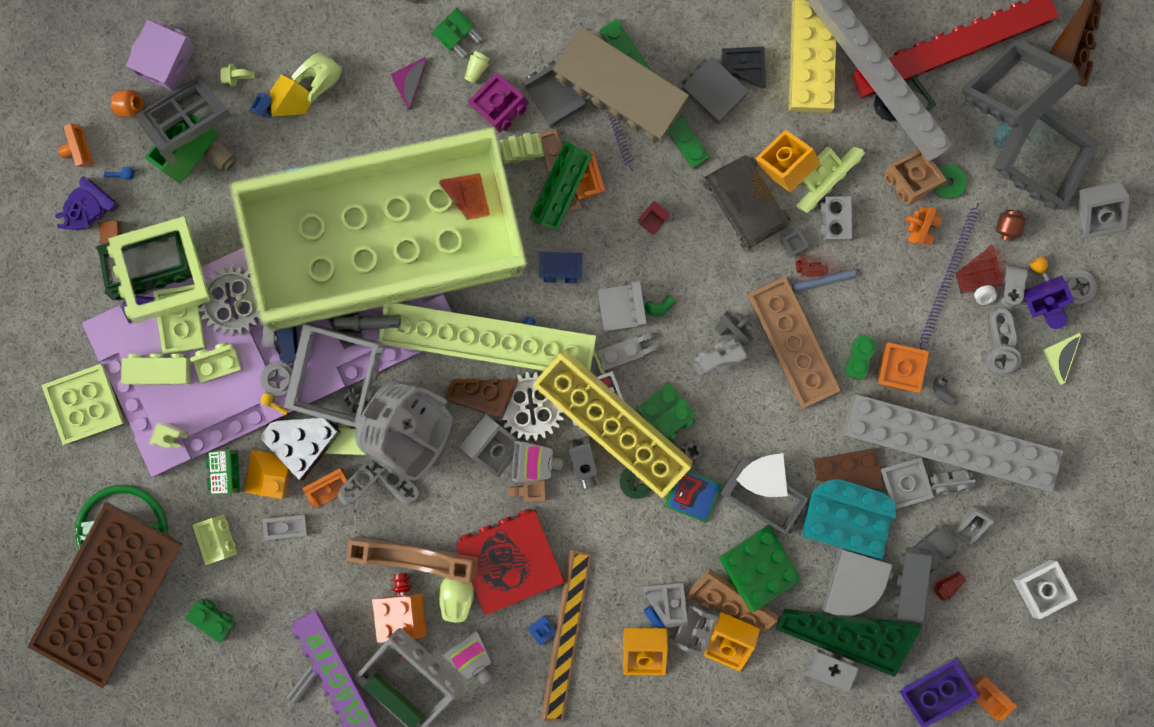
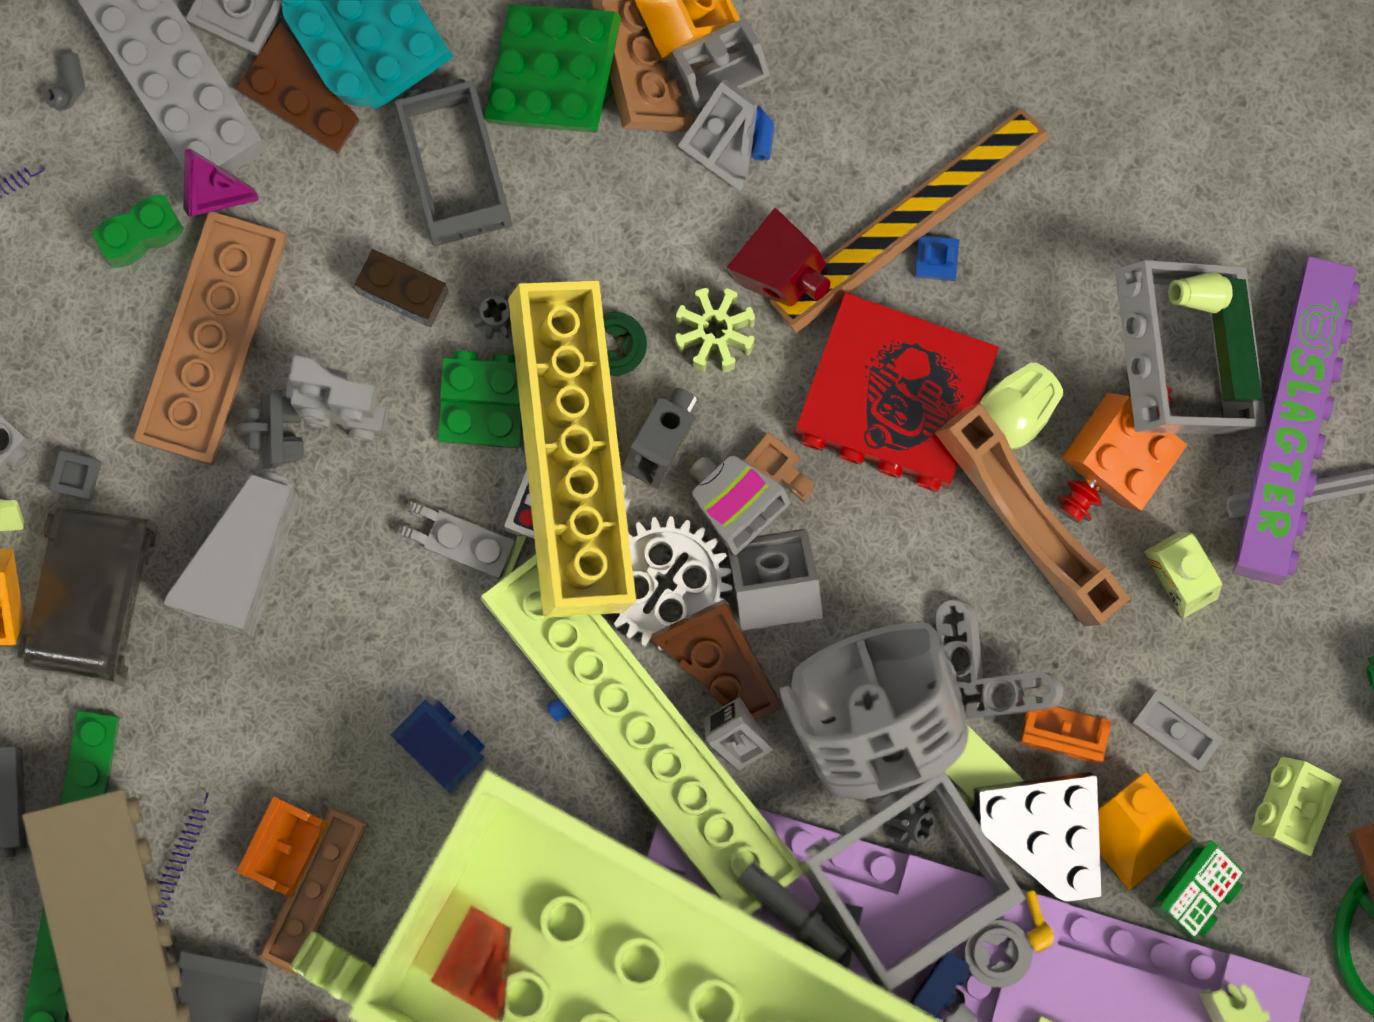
camera: 140 degrees left, 5 degrees down
(336, 591) = (1185, 572): none -> yellowish green torso
(420, 708) = (1202, 292): none -> yellowish green cone
(452, 372) = (736, 734): none -> light grey slope
(471, 657) = (1072, 309): torso -> none
(562, 187) = (330, 857): green fence -> none
(600, 571) = (780, 263): none -> dark red torso
(604, 528) = (721, 319): none -> yellowish green gear
(622, 307) = (404, 607): light grey bracket -> none
(645, 651) = (817, 100): light orange slope -> none
(653, 218) = (241, 695): dark red panel -> none
(659, 309) = (354, 557): green arm -> none
(693, 496) = (552, 248): slope -> none
(701, 267) = (239, 558): none -> light grey slope
(737, 427) = (401, 288): none -> dark brown brick
(765, 476) = (426, 184): white sticker -> none
(813, 270) = (82, 412): clear red bracket -> none
(824, 280) = (84, 386): sand blue bar -> none
(847, 400) = (211, 187): none -> magenta tile
(902, 367) = (93, 163): orange panel -> none

